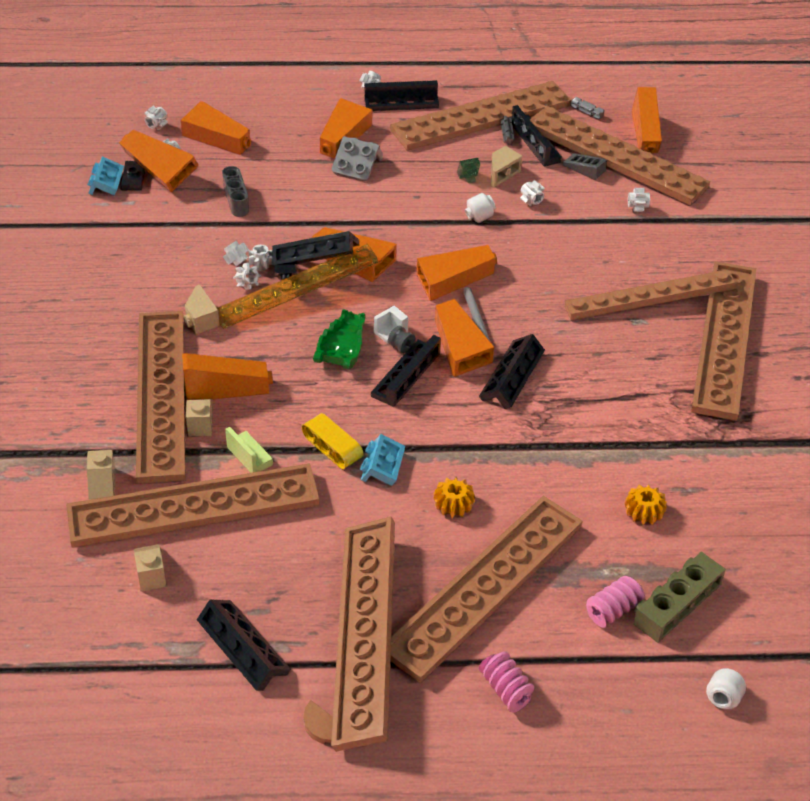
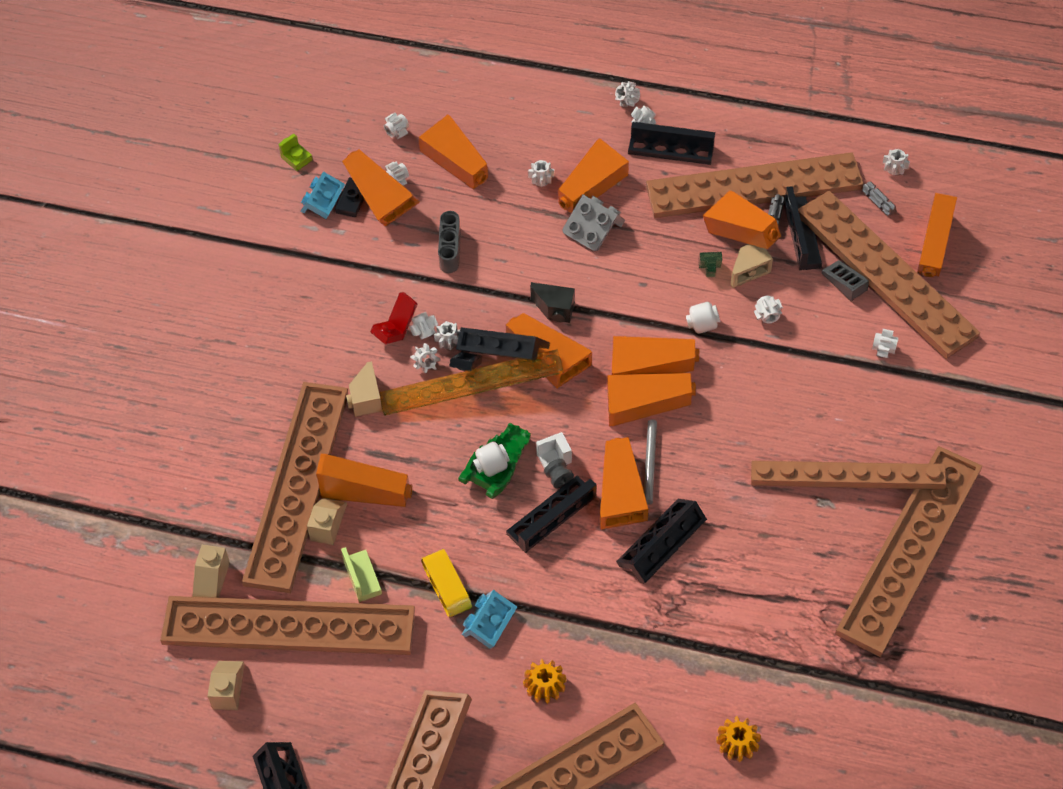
camera: 20 degrees right, 10 degrees up
(66, 152) = (294, 153): none -> lime bracket
(212, 250) = (398, 322): none -> red bracket
(298, 131) = (541, 173): none -> white gear
(339, 336) = (491, 459): none -> white head
(345, 217) = (553, 301): none -> pearl dark grey slope
(350, 68) = (627, 94): none -> white gear
(447, 238) = (653, 355): none -> orange slope
(486, 134) = (741, 221): none -> orange slope
(591, 81) = (896, 162): none -> white gear

